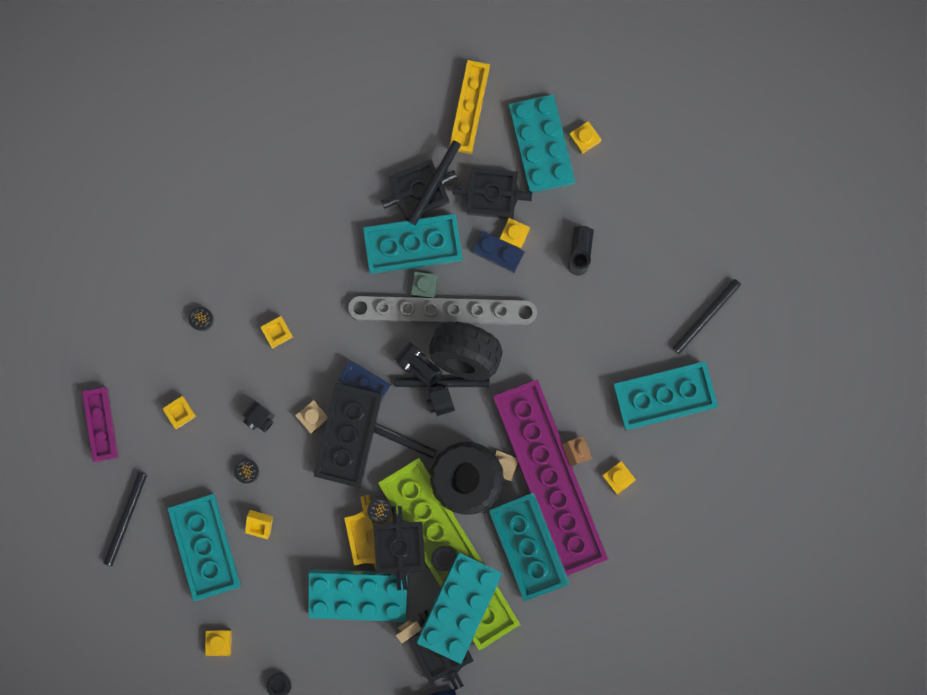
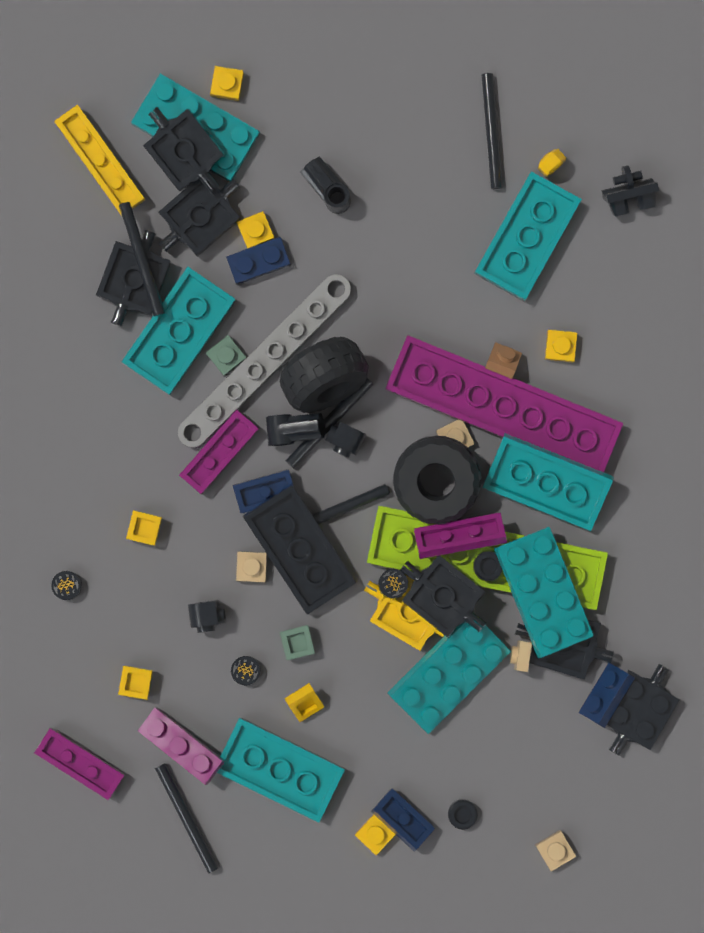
camera: 50 degrees left, 5 degrees up
(165, 475) = (181, 746): none -> magenta plate
(242, 651) = (403, 819): none -> dark blue plate
(291, 486) = (297, 642): none -> sand green plate
(363, 333) = (219, 452): none -> magenta plate
(446, 523) = (460, 535): none -> magenta plate
(521, 147) = (184, 149): none -> black plate
(722, 368) = (551, 162): none -> yellow tile
(759, 439) = (642, 190): none -> black hips

